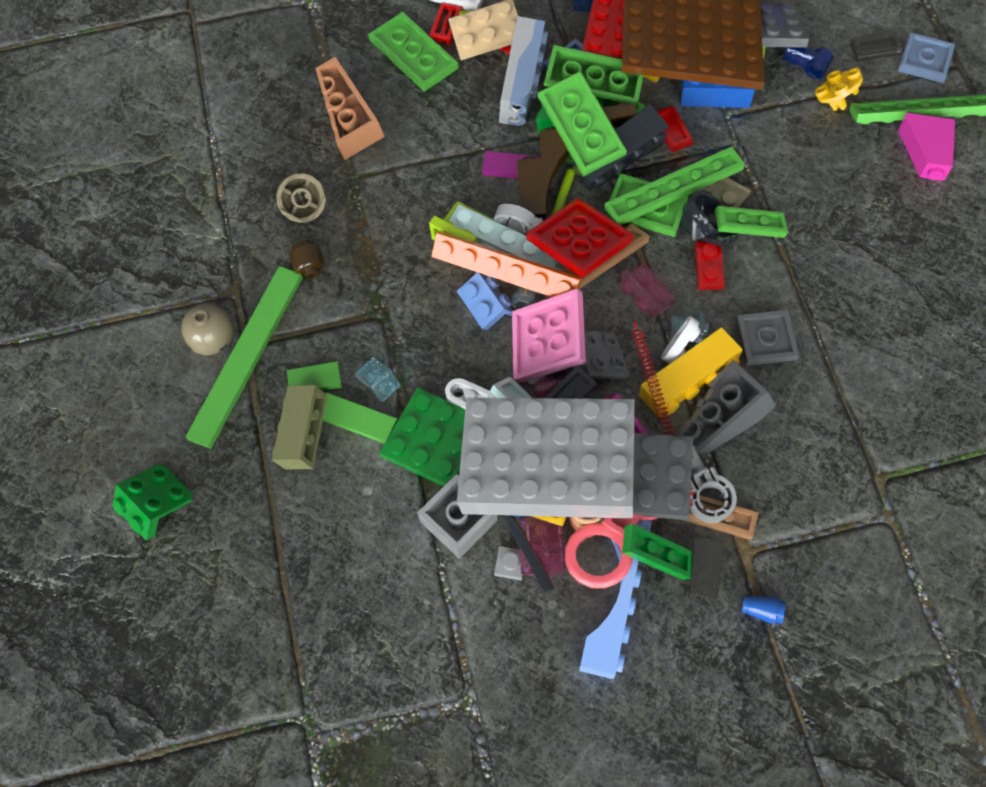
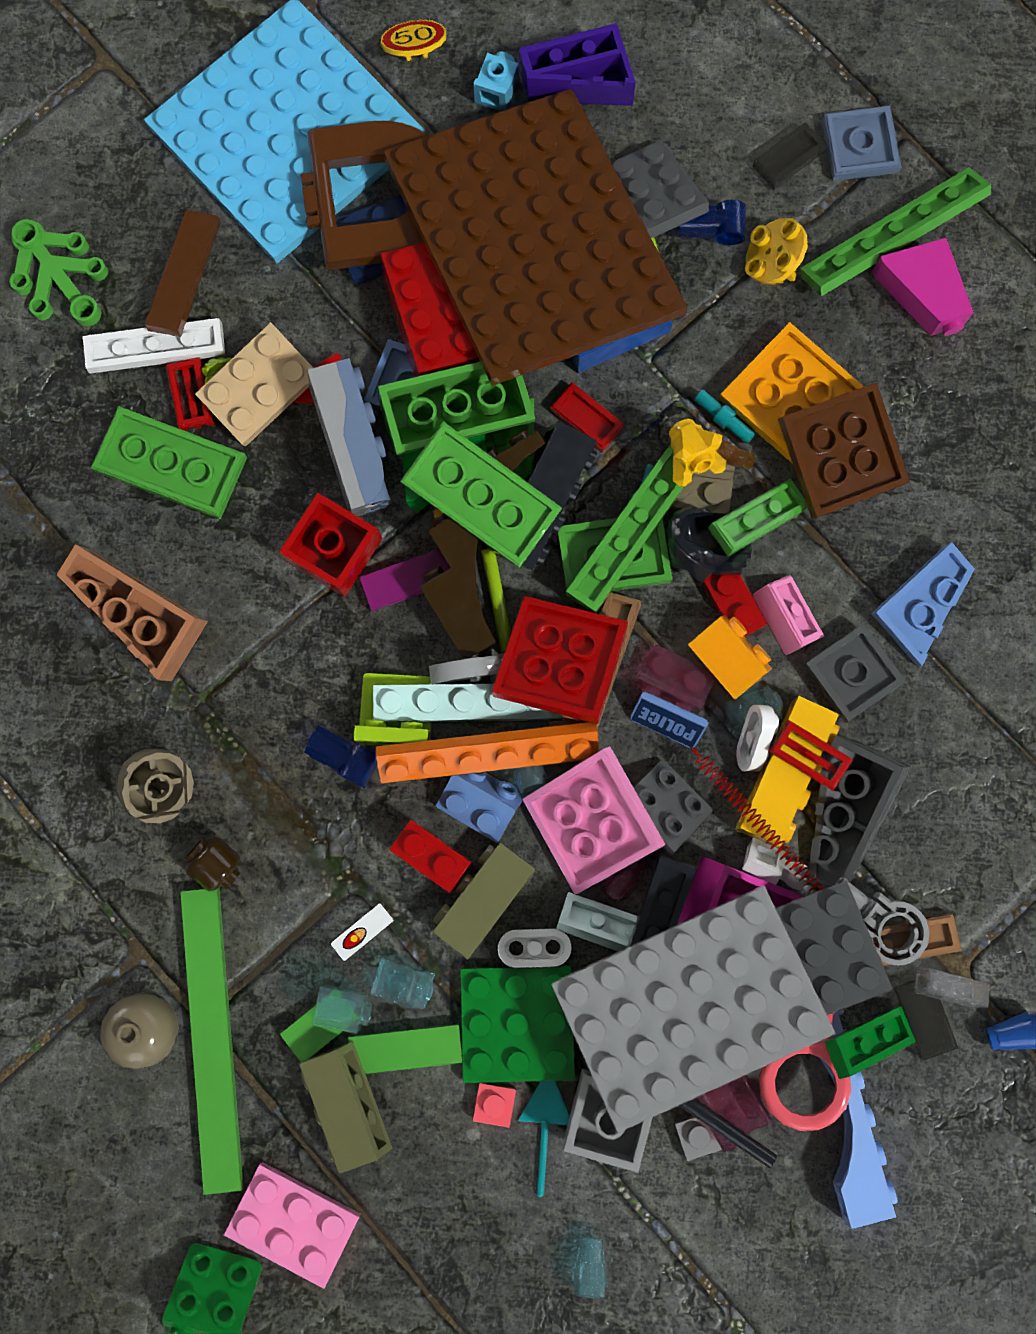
camera: 30 degrees left, 15 degrees up
(226, 484) = (292, 1224): none -> bright pink plate
(331, 368) = (342, 1009): none -> clear light blue brick
(370, 342) = (362, 932): none -> white sticker
(391, 477) = (494, 1104): none -> coral plate
(391, 606) = (590, 1269): none -> clear light blue cone
(418, 497) = (545, 1108): none -> teal piece
(419, 240) = (349, 759): none -> clear blue piece
(437, 314) = (430, 856): none -> red brick
(455, 354) = (482, 899): none -> olive brick
(479, 124) = (331, 544): none -> red brick
(630, 308) = (668, 720): none -> slope
(649, 419) = (766, 865): none -> white plate
(689, 288) = (731, 655): none -> light orange brick
(722, 379) = (783, 738): none -> red tile
(727, 158) = (694, 451): none -> yellow rock
(733, 554) = (952, 988): none -> clear piece
(740, 287) = (787, 615): none -> bright pink slope
(748, 180) = (736, 456): none -> clear orange arm
(759, 163) = (724, 416): none -> teal bar
(810, 168) = (783, 380): none -> light orange plate
(826, 207) = (843, 450): none -> reddish brown plate
(836, 317) = (922, 603): none -> medium blue wing

